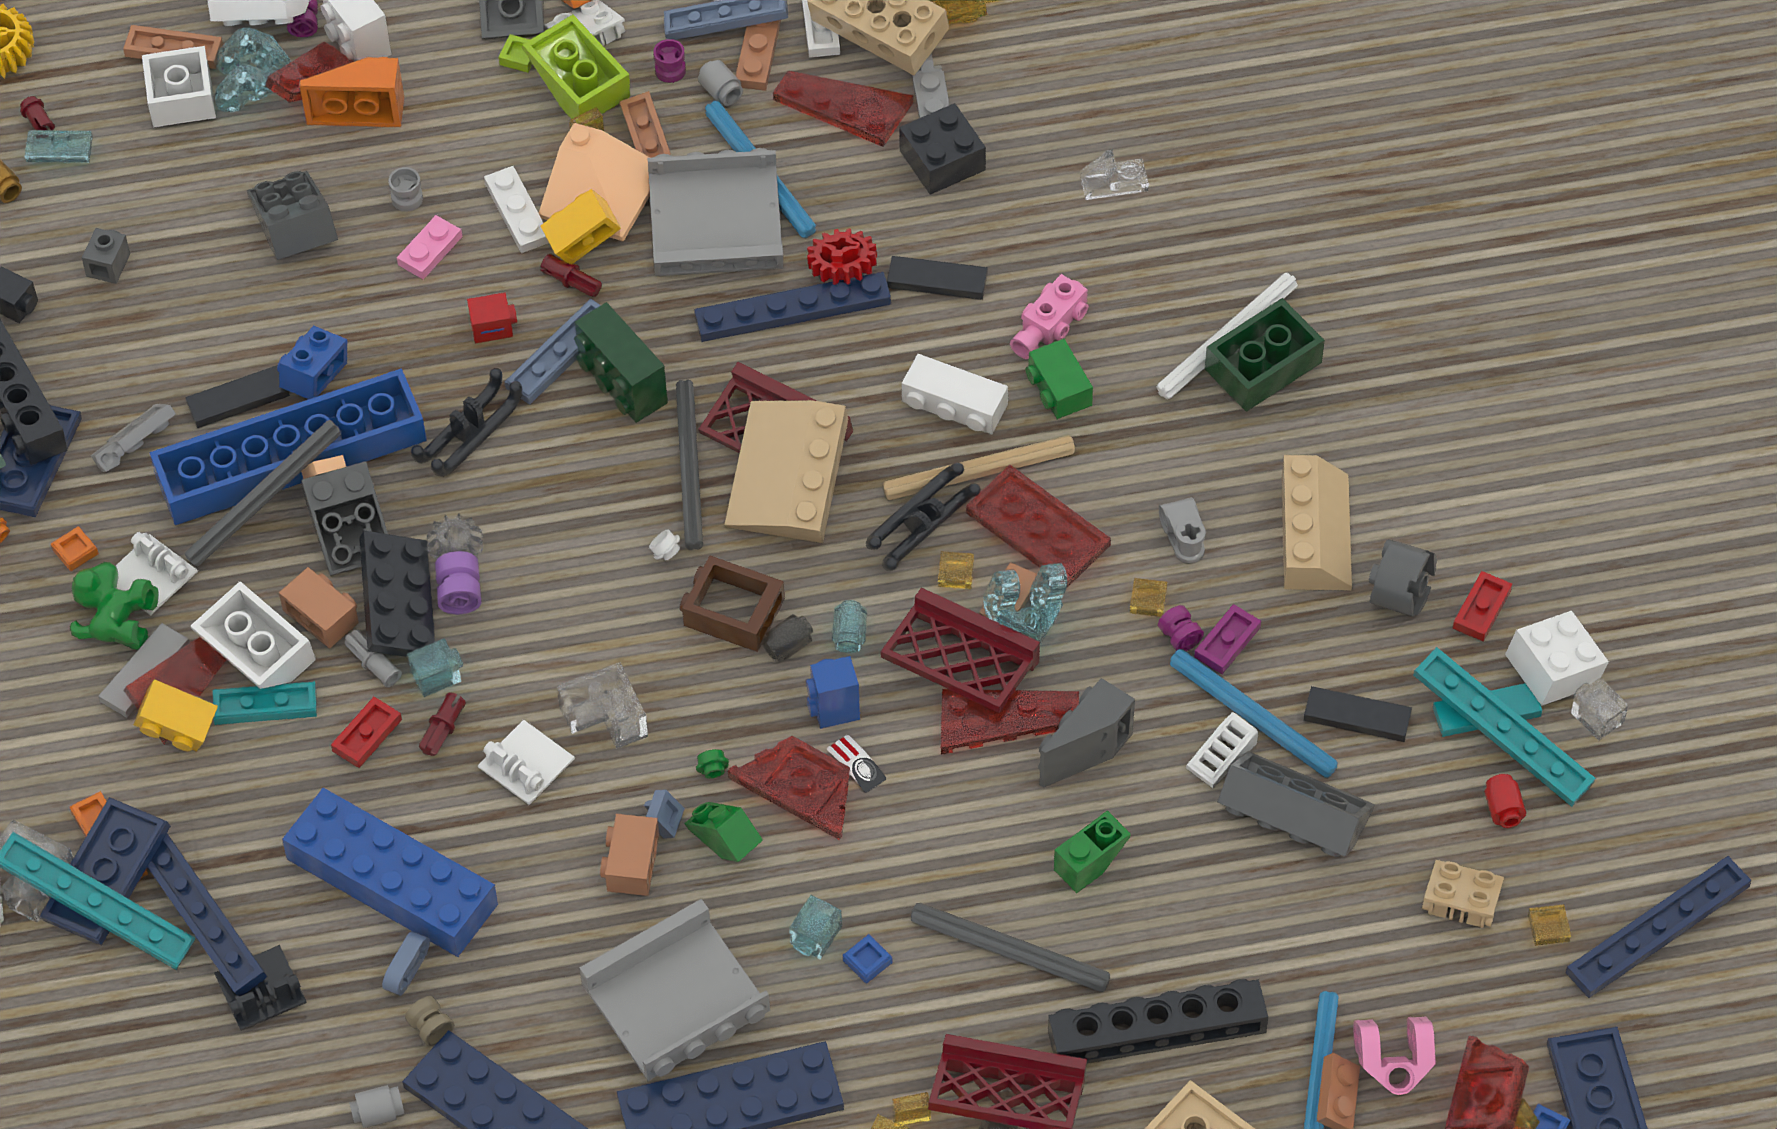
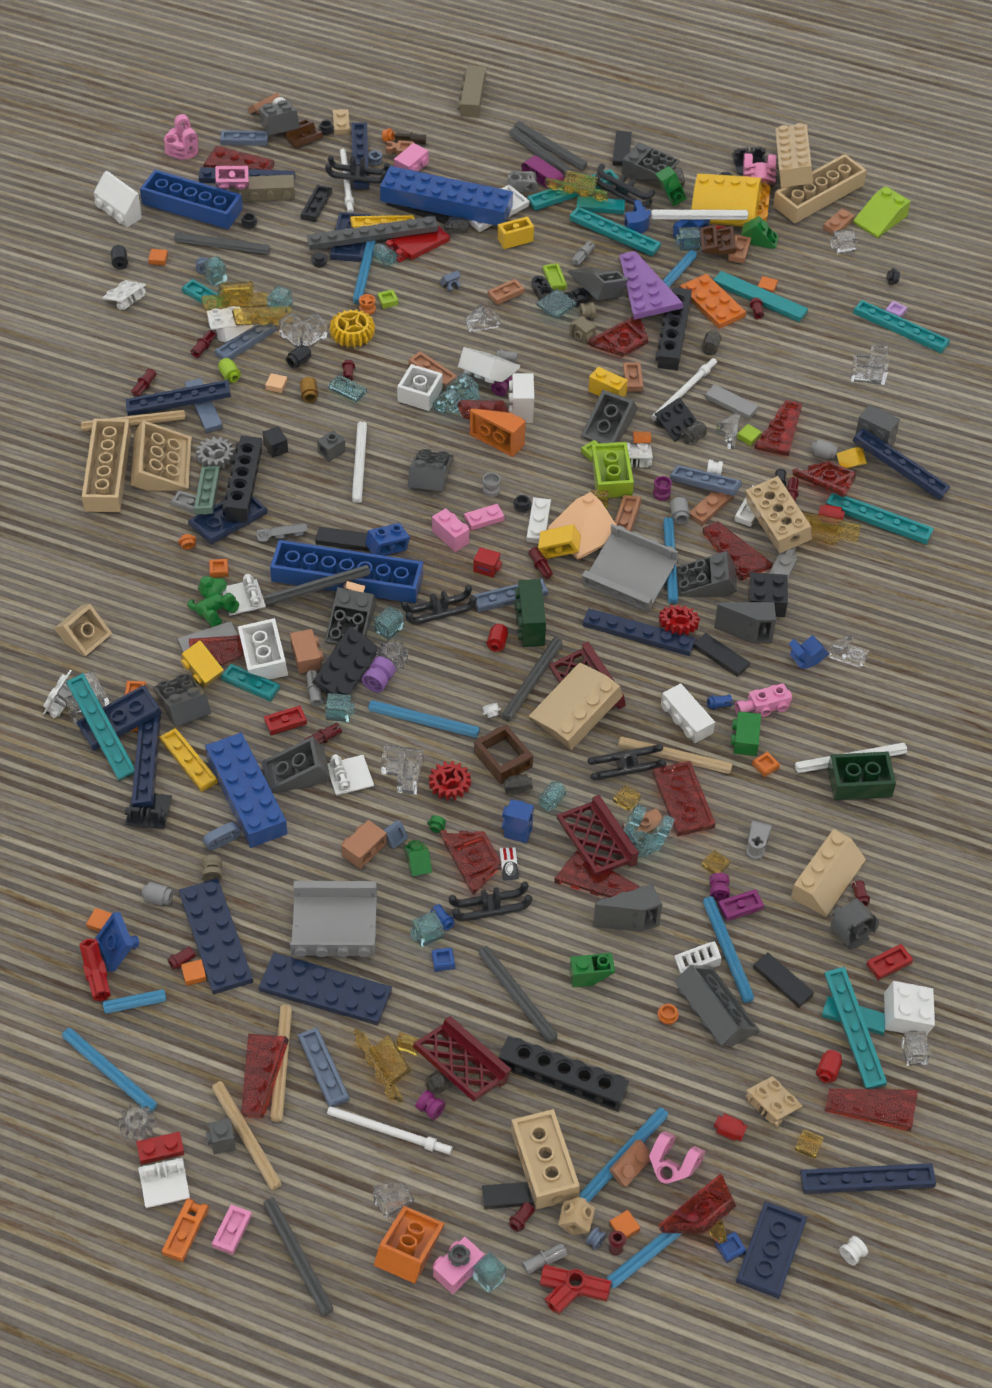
camera: 30 degrees right, 5 degrees down
(168, 259) = (359, 462): none -> white axle
(182, 787) = (182, 699): none -> dark grey slope
(261, 876) = (188, 759): none -> yellow tile
(397, 295) = (450, 529): none -> bright pink brick
(412, 493) = (389, 623): none -> clear light blue brick
(440, 793) = (297, 767): none -> dark grey slope
(473, 194) = (522, 503): none -> black plate
(572, 614) = (423, 718): none -> dark azure axle
(593, 428) = (497, 637): none -> red brick
(701, 689) = (450, 780): none -> red gear
(832, 897) = (446, 920): none -> blue pin
(834, 167) = (707, 577): none -> dark grey slope
(878, 836) = (490, 903): none -> black piece
(946, 205) = (747, 620): none -> dark grey slope
(979, 356) = (719, 701): none -> blue pin
(1061, 208) = (808, 653): none -> blue brick
(1115, 410) = (765, 764): none -> orange tile
(1237, 854) = (668, 1014): none -> orange plate
(1376, 528) = (860, 892): none -> dark red pin
(1434, 964) = (730, 1127): none -> red brick
(1601, 819) = (879, 1106): none -> clear red wing
(1708, 1035) = (853, 1250): none -> white wheel

